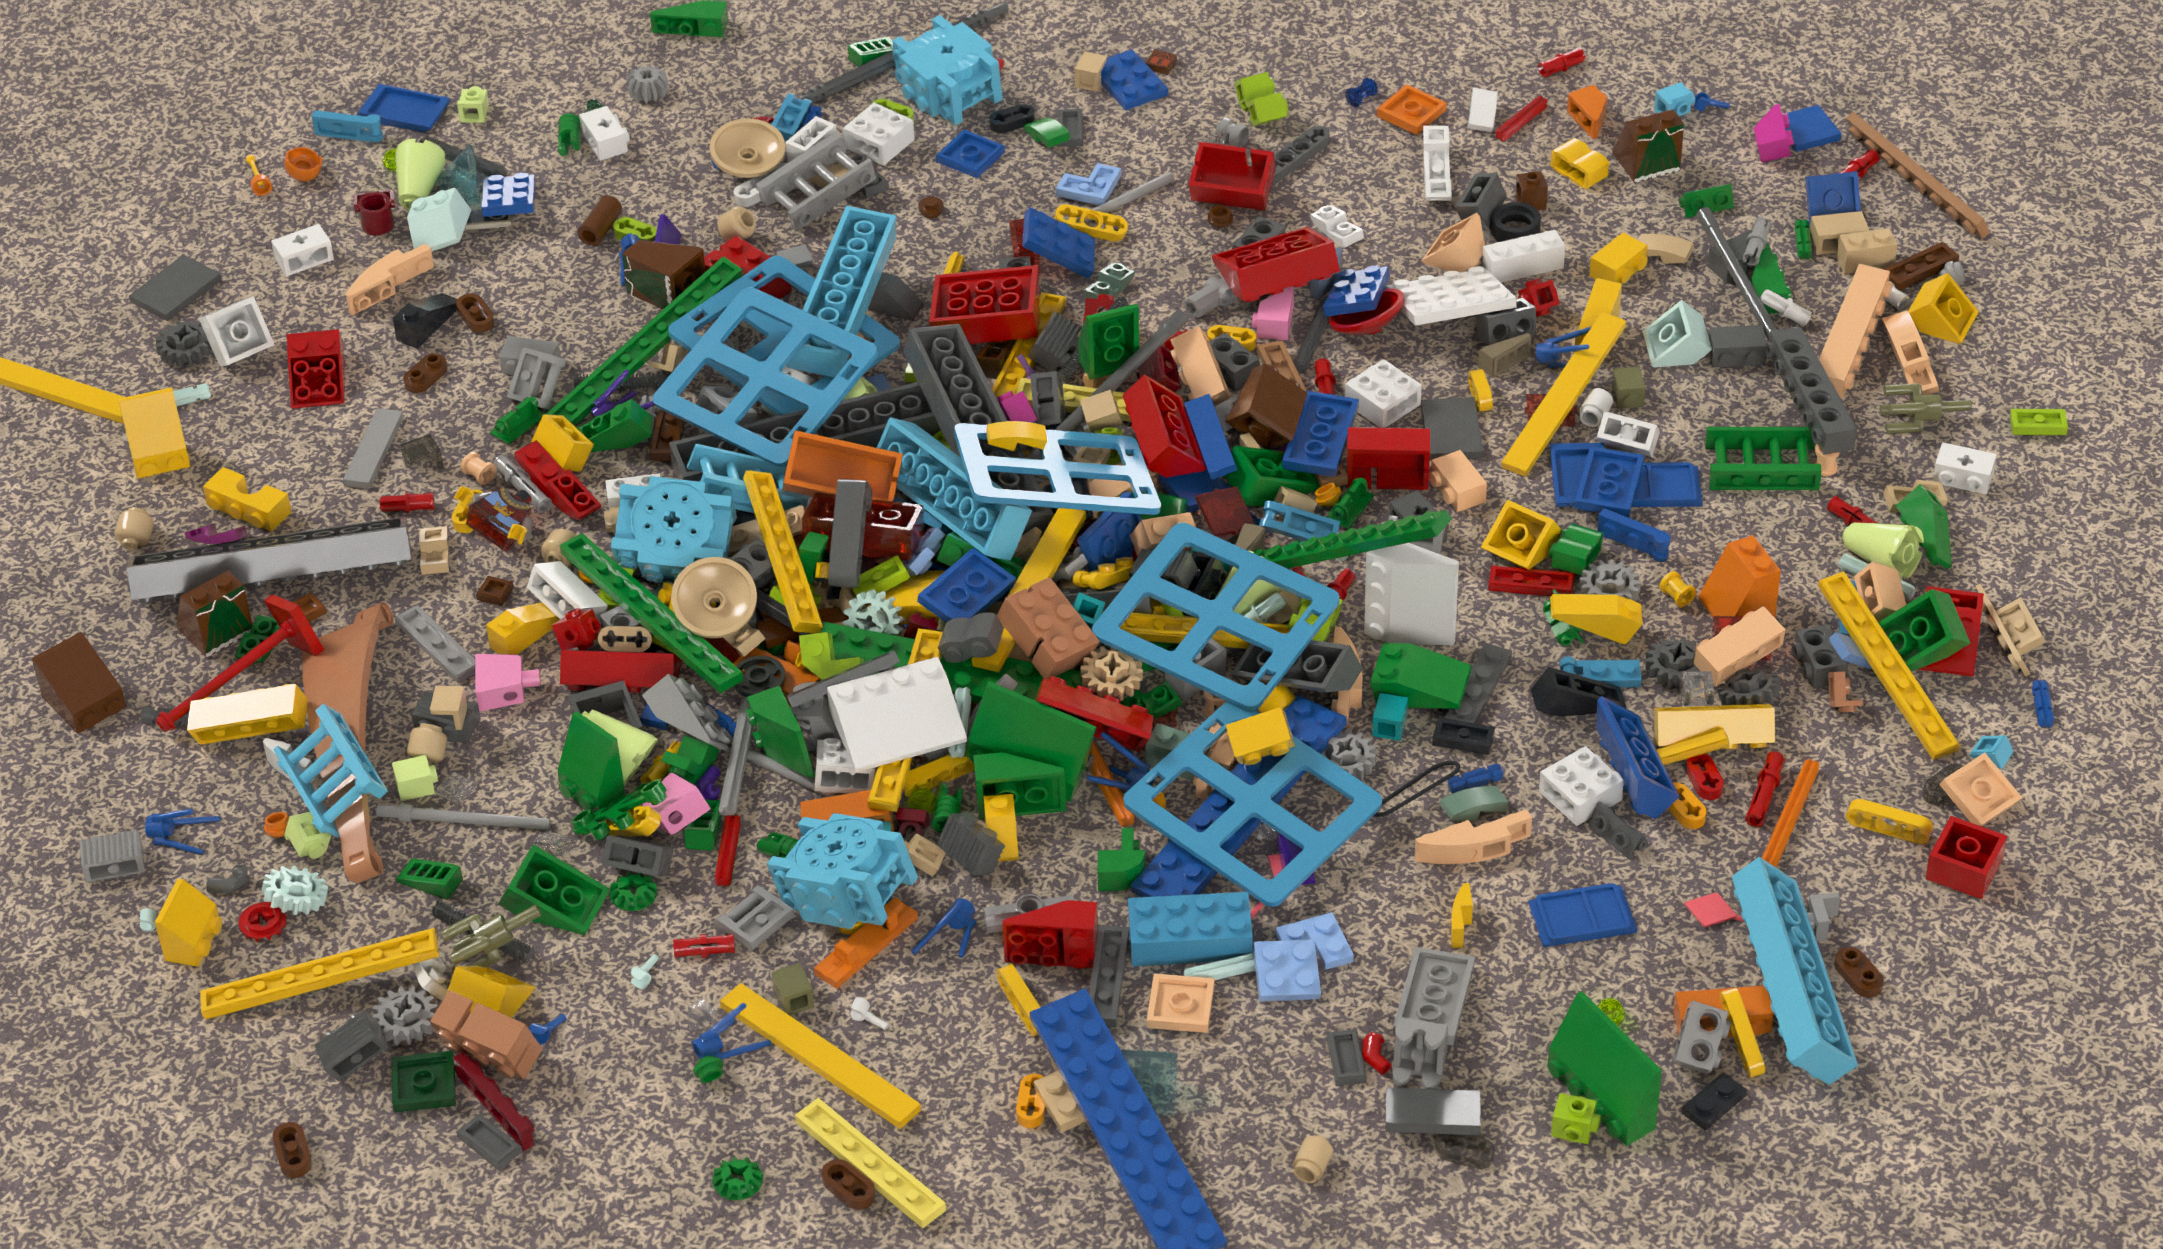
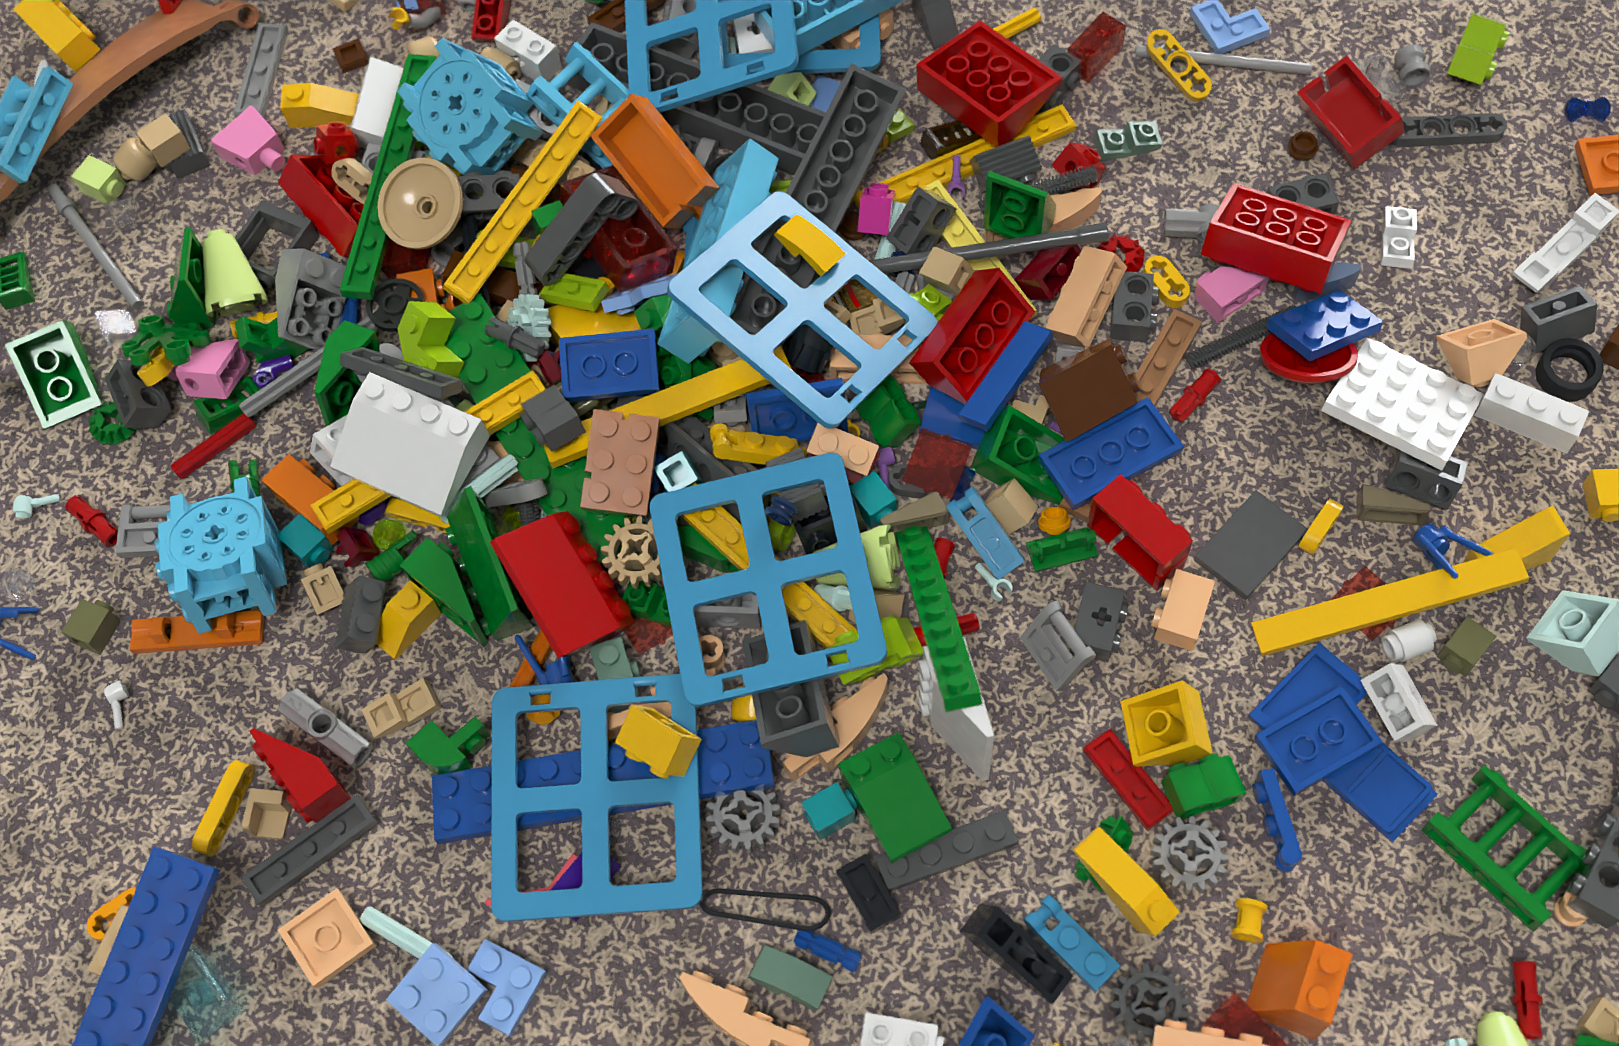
camera: 50 degrees right, 20 degrees up
(745, 639) = (426, 260): tan bracket -> none
(822, 1056) = (43, 712): yellow tile -> none
(826, 598) = (525, 276): none -> light grey axle
(883, 619) = (515, 337): none -> dark grey axle
(957, 917) = (279, 674): blue plant -> none
(1050, 978) = (266, 814): none -> tan panel
(1059, 242) = (1121, 66): blue plate -> none
(1061, 873) = (400, 710): none -> tan slope
(1185, 571) = (781, 511): none -> dark blue bush
(1189, 928) = (414, 871): dark azure brick -> none
(1384, 393) = (1222, 455): white brick -> none
(1540, 295) = (1493, 481): red brick -> none

